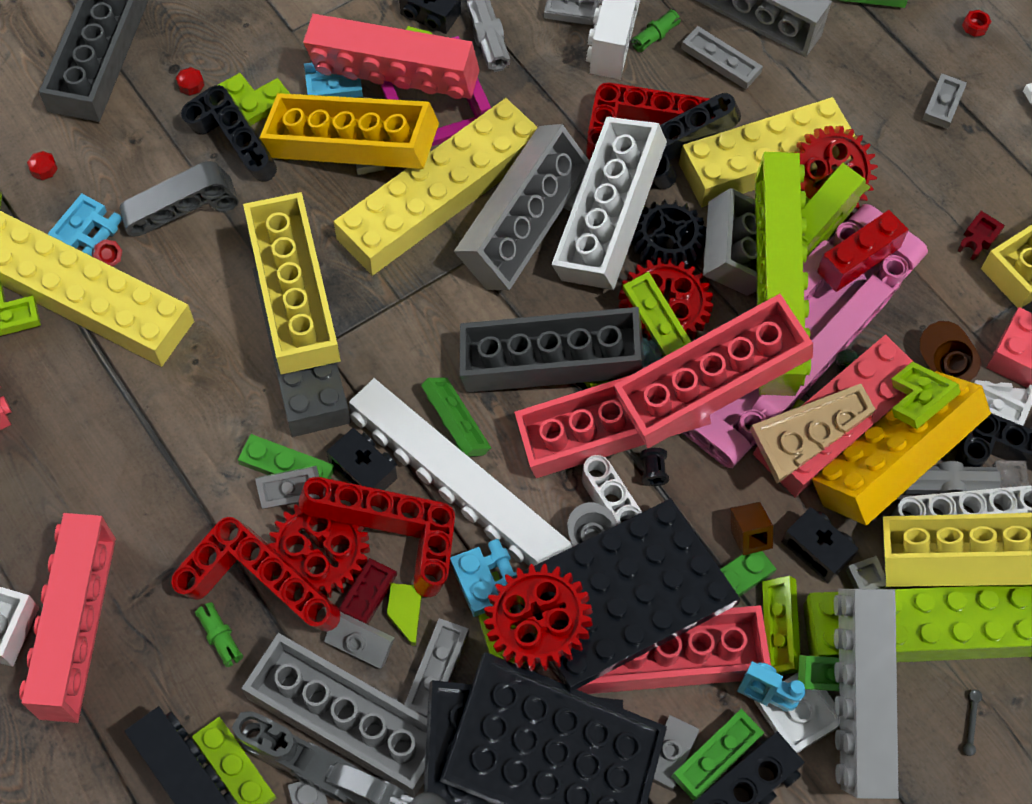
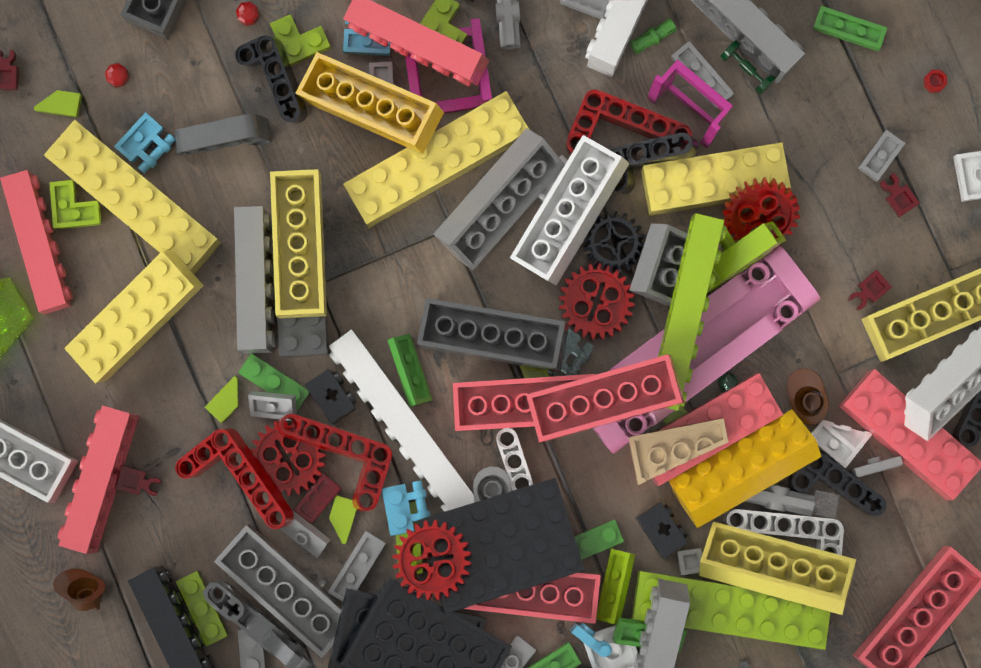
camera: 15 degrees right, 20 degrees up
(60, 772) = (80, 589): none -> reddish brown piece
(92, 409) = (134, 316): none -> light yellow brick
(107, 252) = (160, 171): red tile -> none
(116, 615) = (133, 480): none -> dark red plate
(218, 634) = (205, 508): bright green pin -> none
(226, 497) = (225, 401): none -> lime tile
(243, 345) = (253, 280): none -> light grey brick
(654, 466) = (552, 447): black bush -> none
(656, 314) = (583, 321): lime plate -> none
(683, 55) = (665, 82): none -> dark pink piece
(746, 28) = (747, 67): none -> dark green wheel
(751, 528) = (612, 508): reddish brown brick -> none
(862, 250) = (762, 297): red brick -> none
(925, 392) = (771, 442): lime plate -> none
(980, 138) = (900, 198): none -> dark red plate

